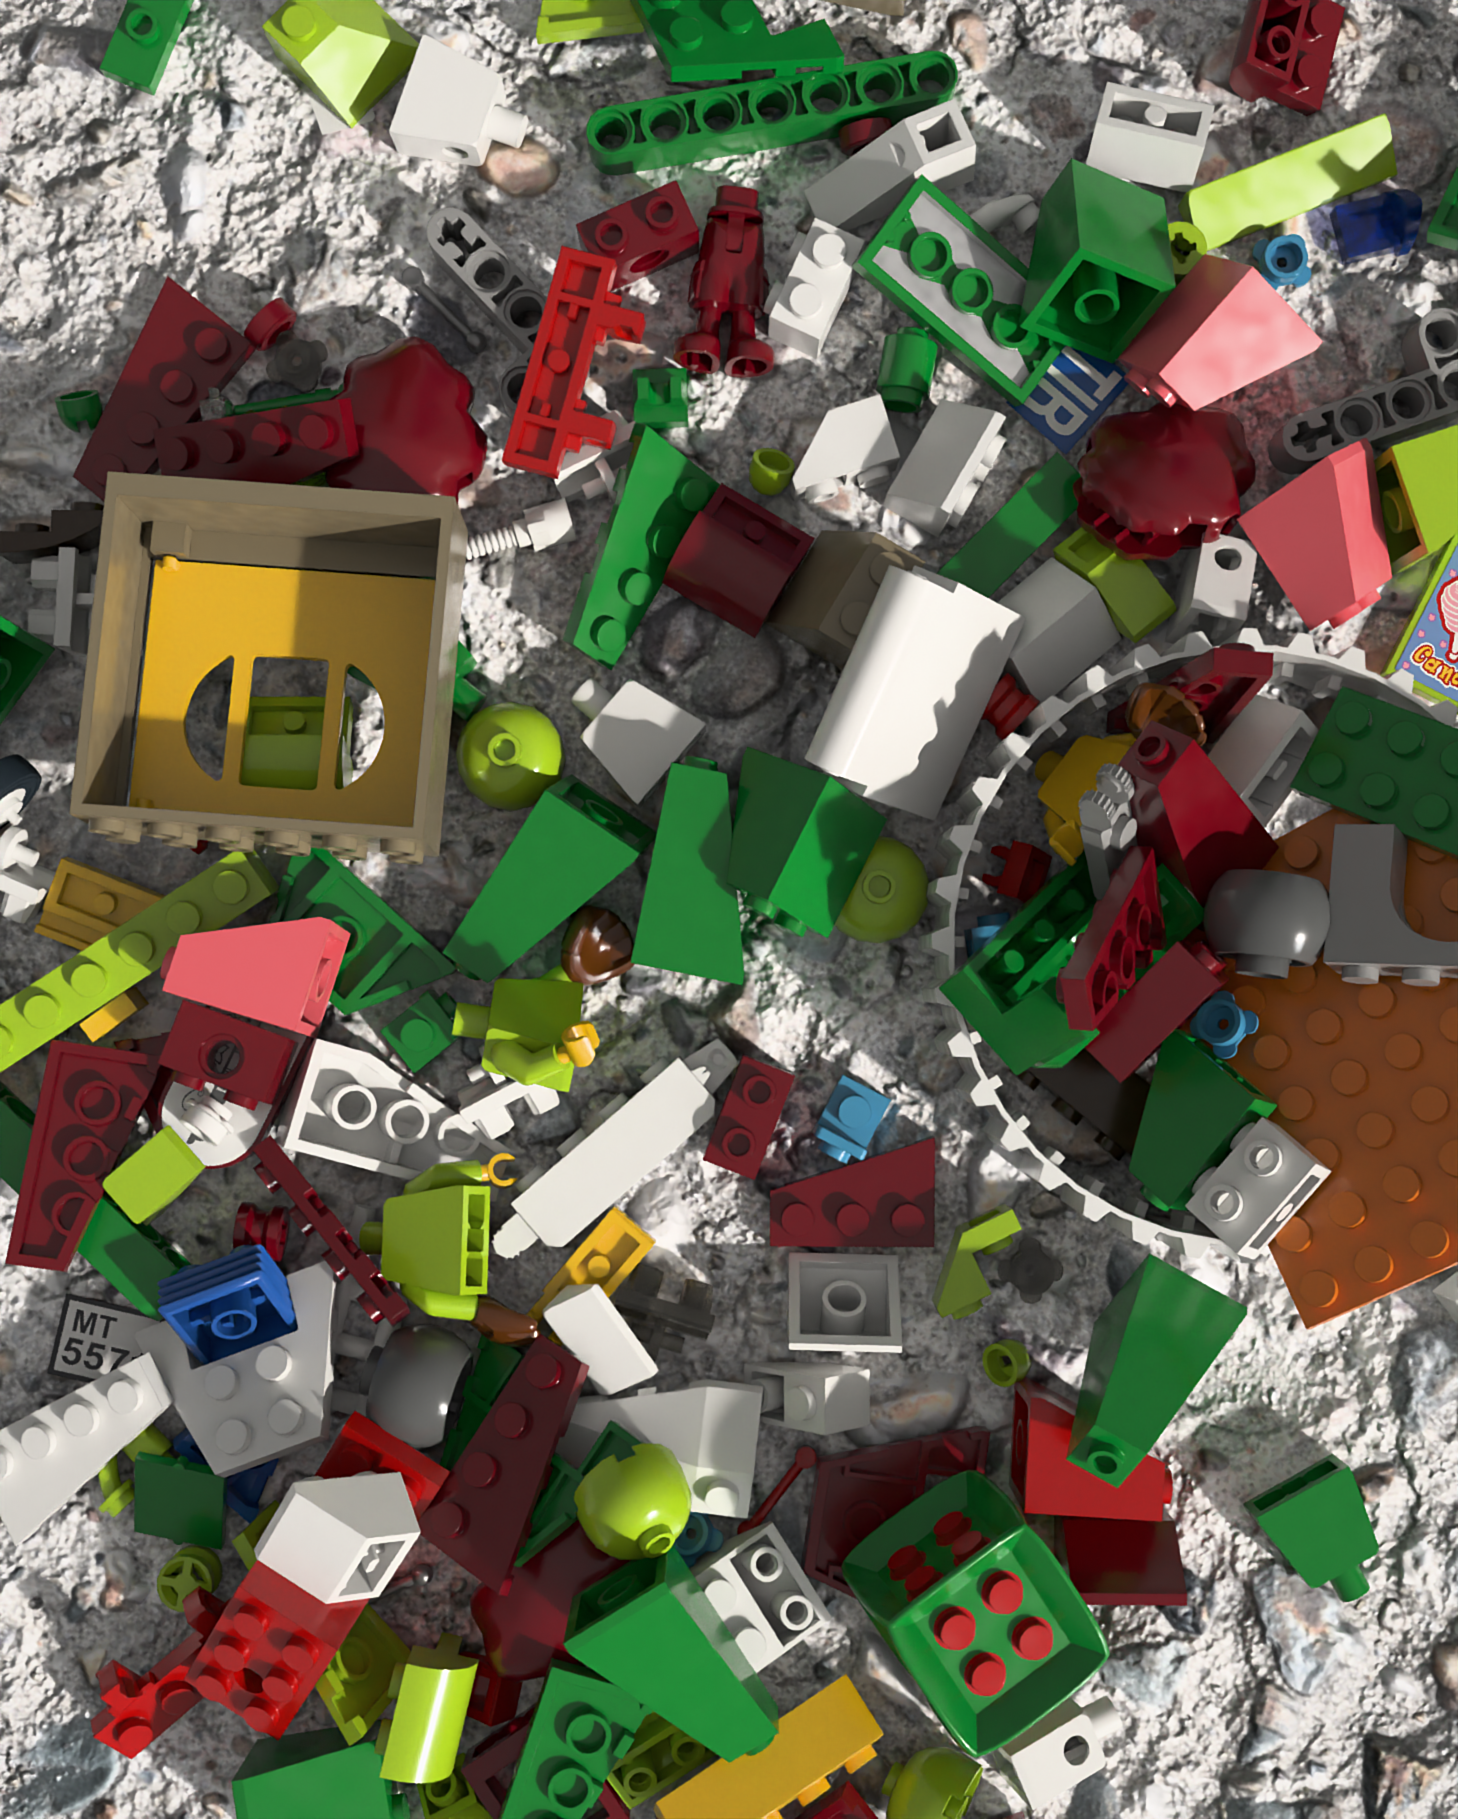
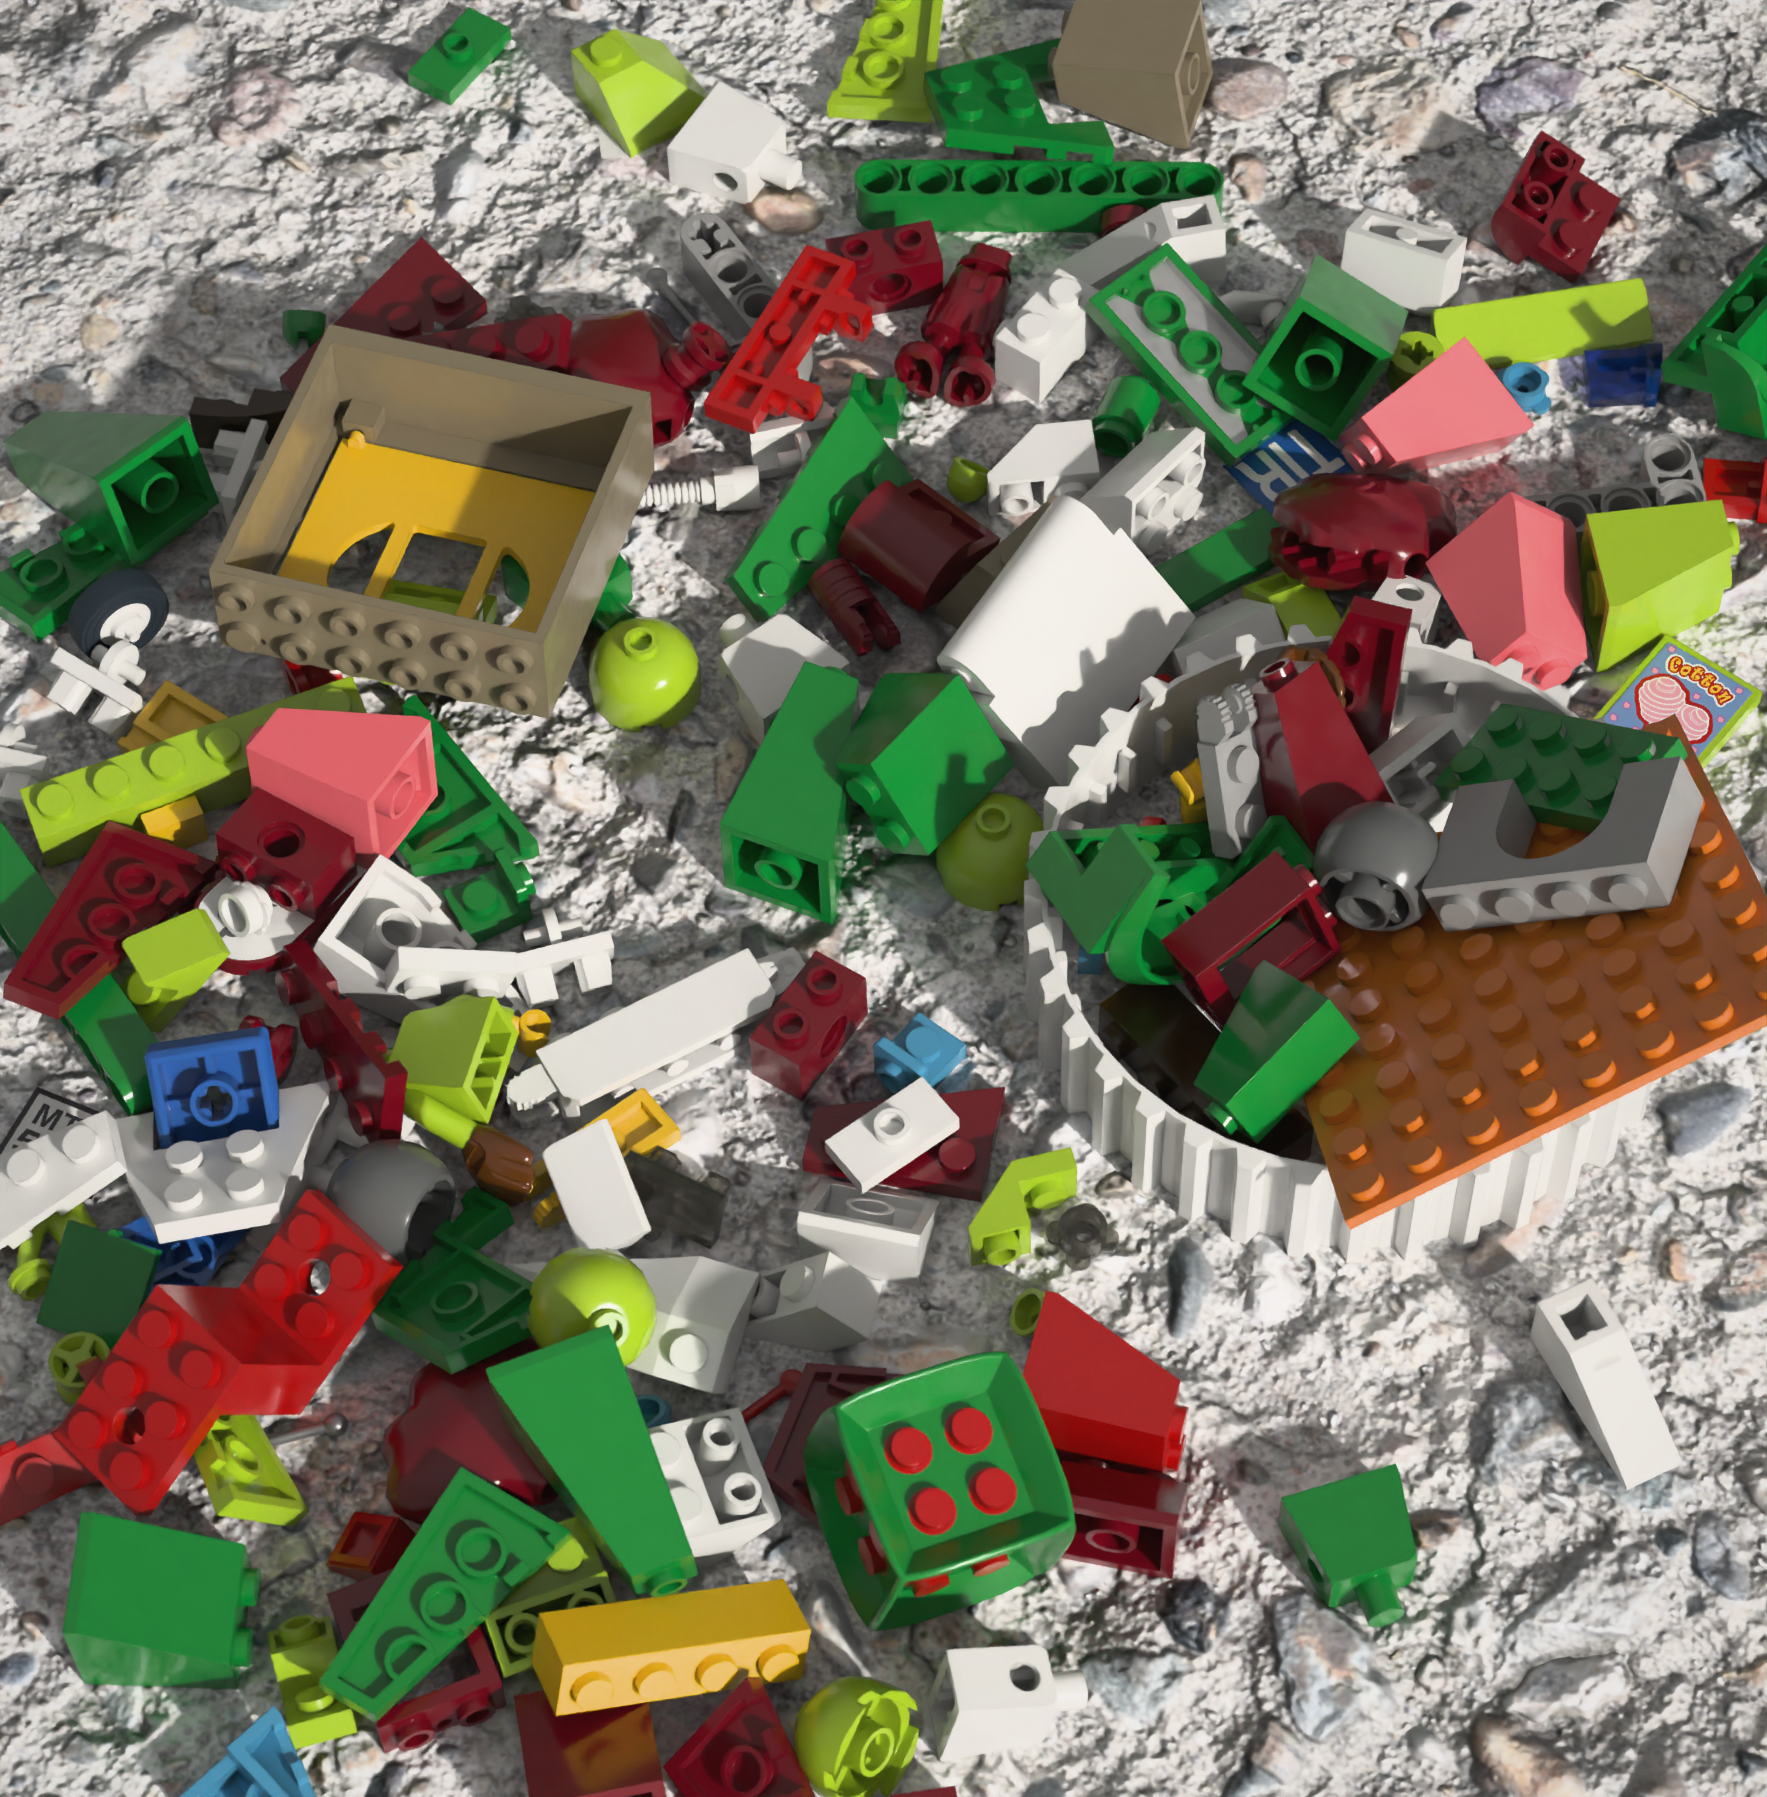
camera: 15 degrees right, 30 degrees down
(269, 323) = (506, 283): dark red tile -> none
(341, 1535) = (271, 1272): white slope -> none
(429, 1713) = (307, 1514): lime brick -> none
(437, 1143) = (452, 972): none -> white plate
(481, 399) = (697, 357): none -> dark red wheel
(494, 1486) = (448, 1286): dark red wing -> none
(535, 1023) = (620, 896): lime torso -> none
(553, 866) = (648, 775): green slope -> none
(683, 637) = (852, 607): none -> dark red hinge
(848, 1221) = (892, 1135): none -> white plate
(1117, 940) = (1205, 826): dark red wing -> none
(1144, 1365) = (1190, 1298): green slope -> none
(1223, 1007) = (1324, 971): dark azure plate -> none
(1256, 1187) = (1319, 1090): white brick -> none

